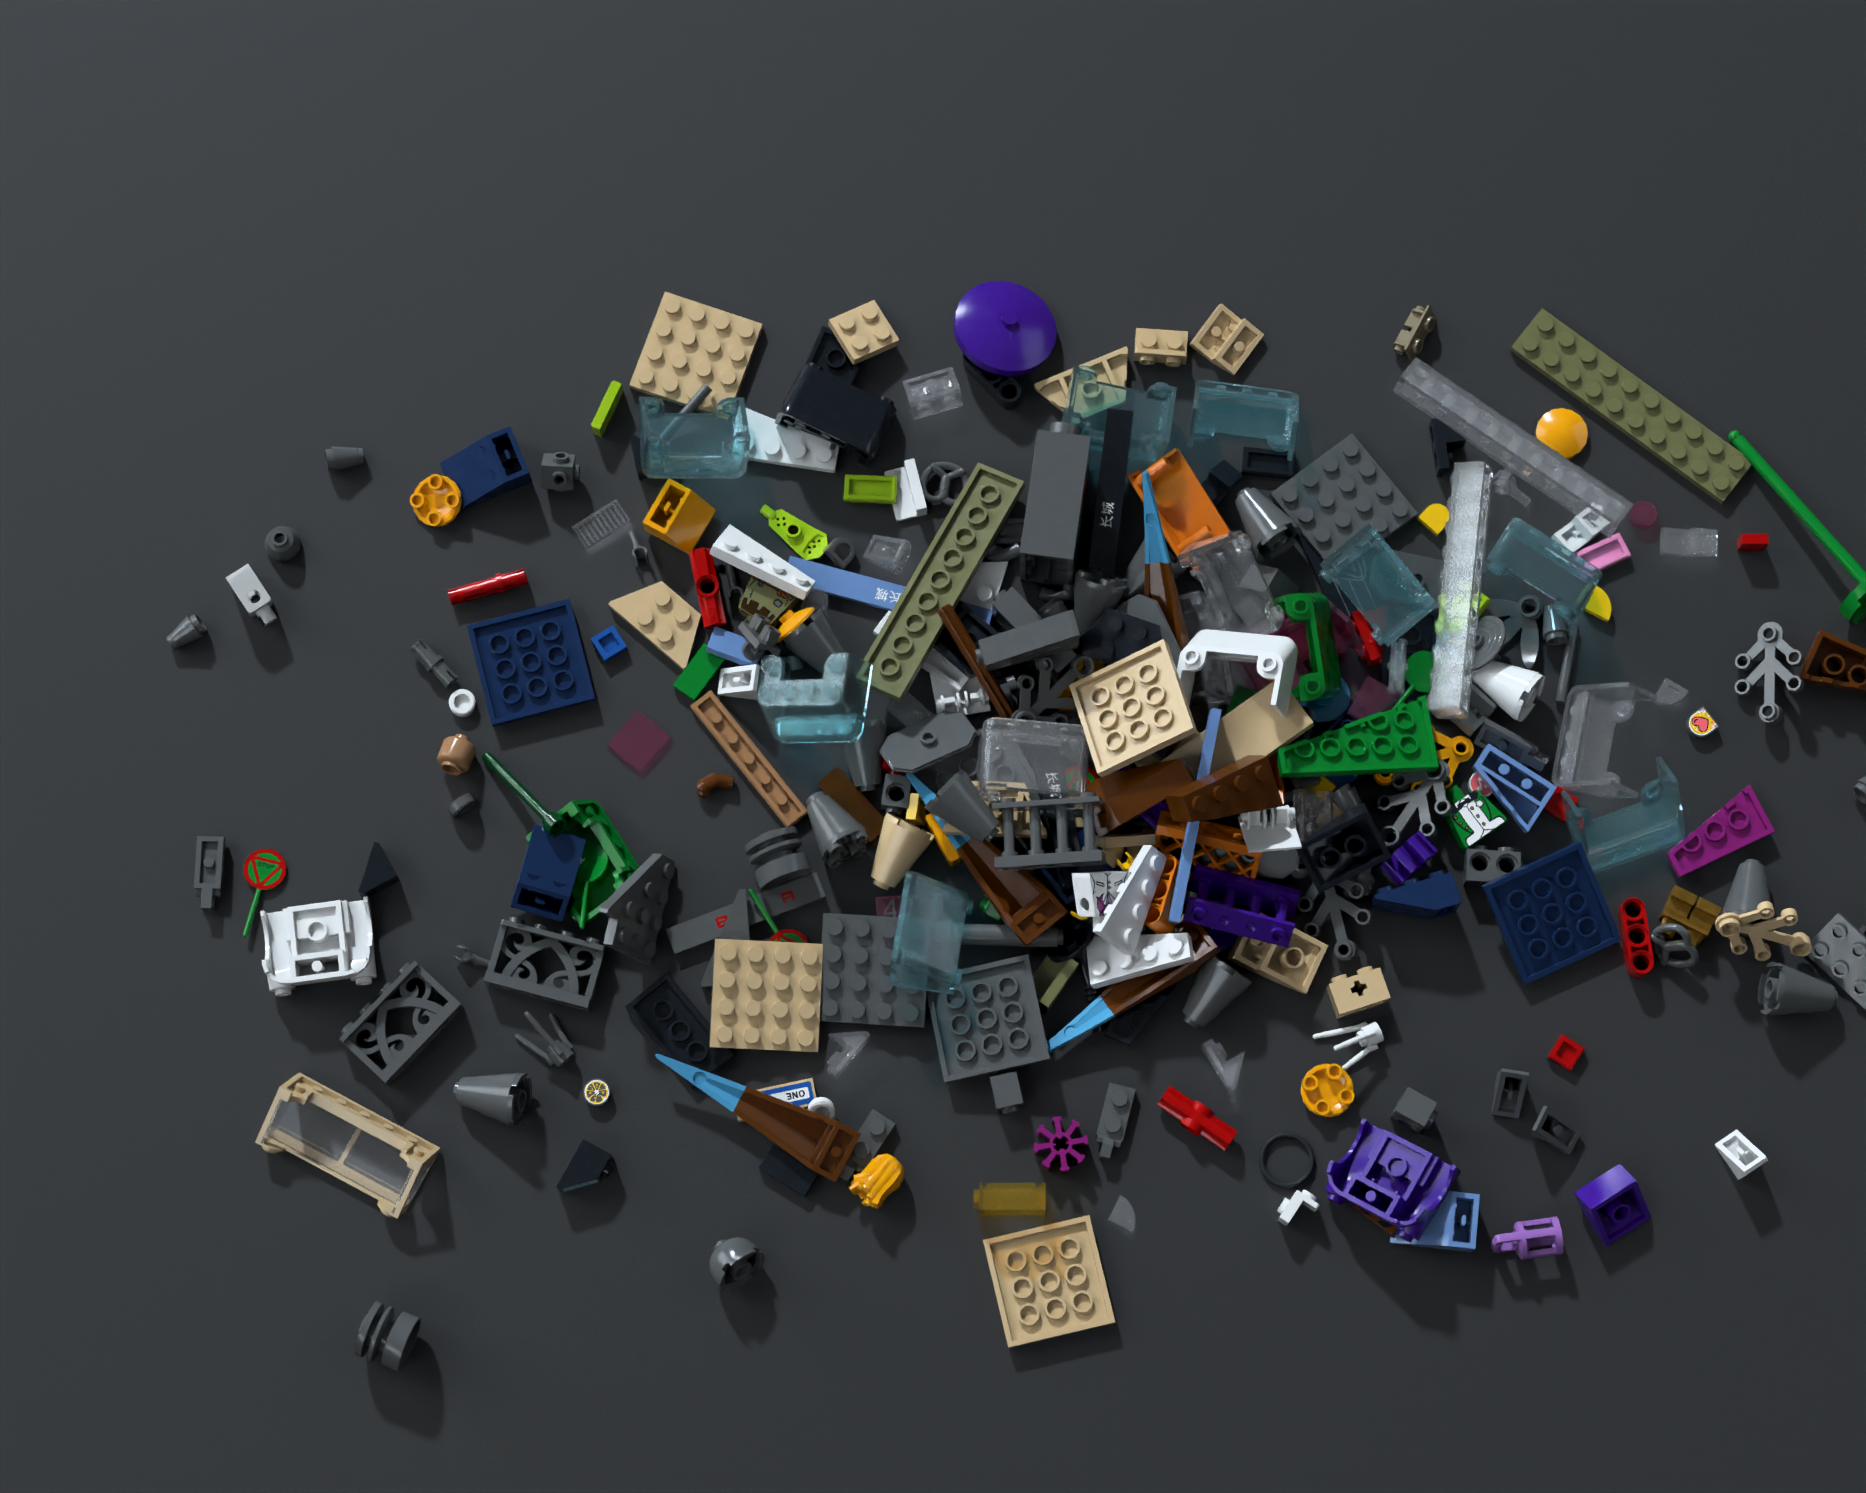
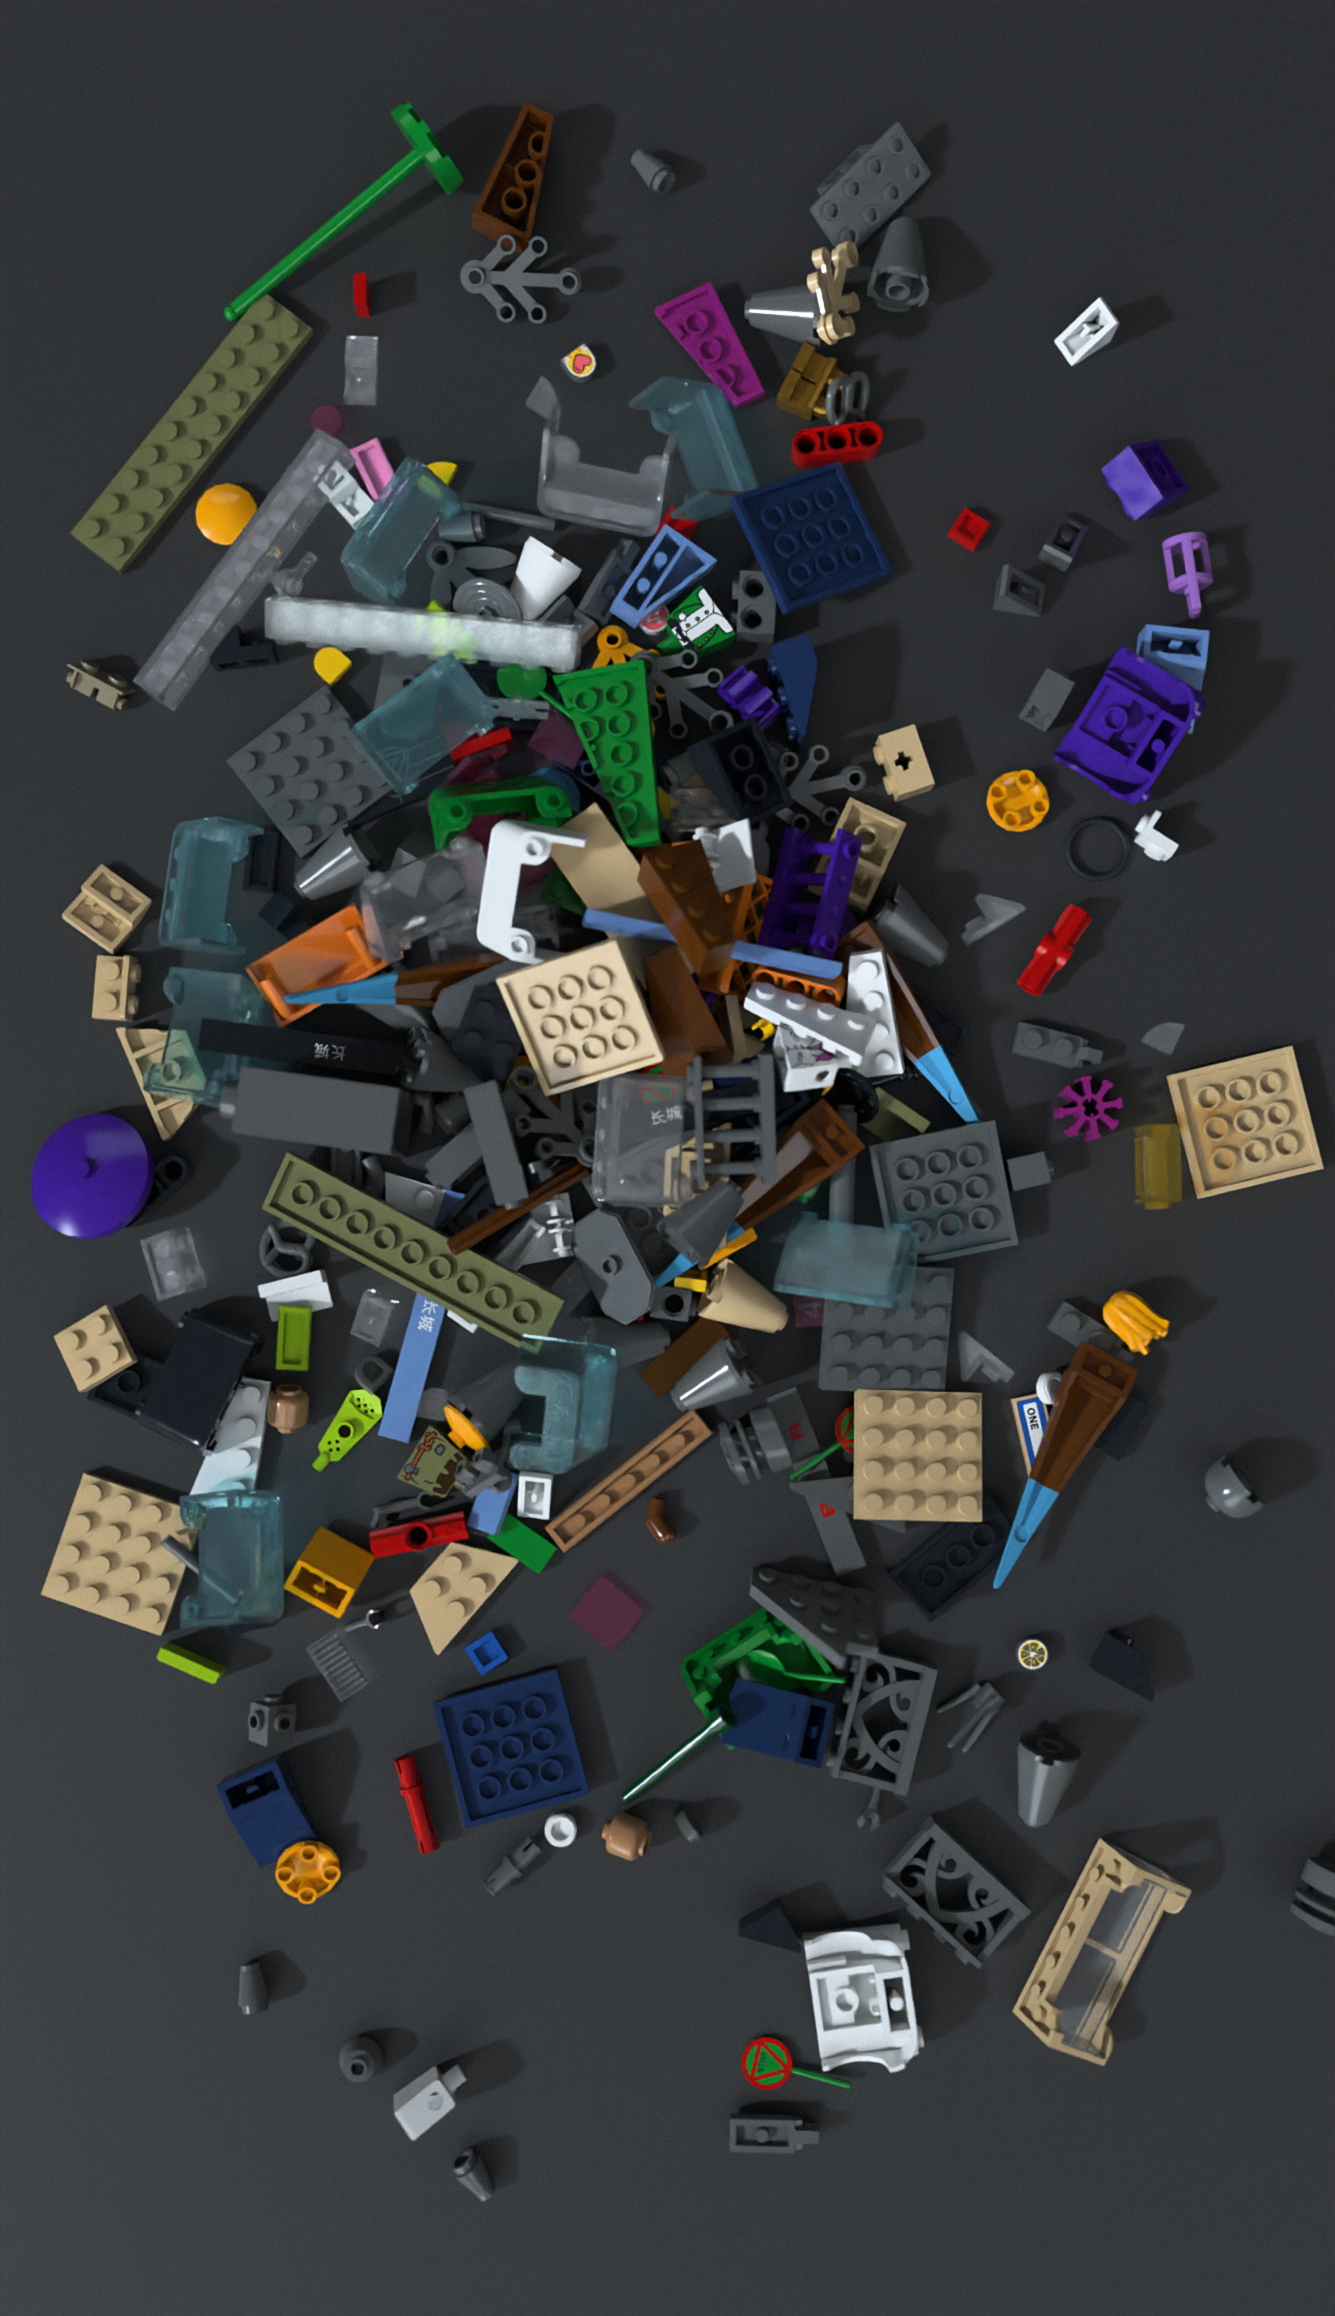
camera: 90 degrees left, 10 degrees up
(760, 562) = (385, 1477): white wing -> none
(813, 483) = (288, 1408): none -> medium nougat head
(1367, 1035) = (957, 753): white plant -> none

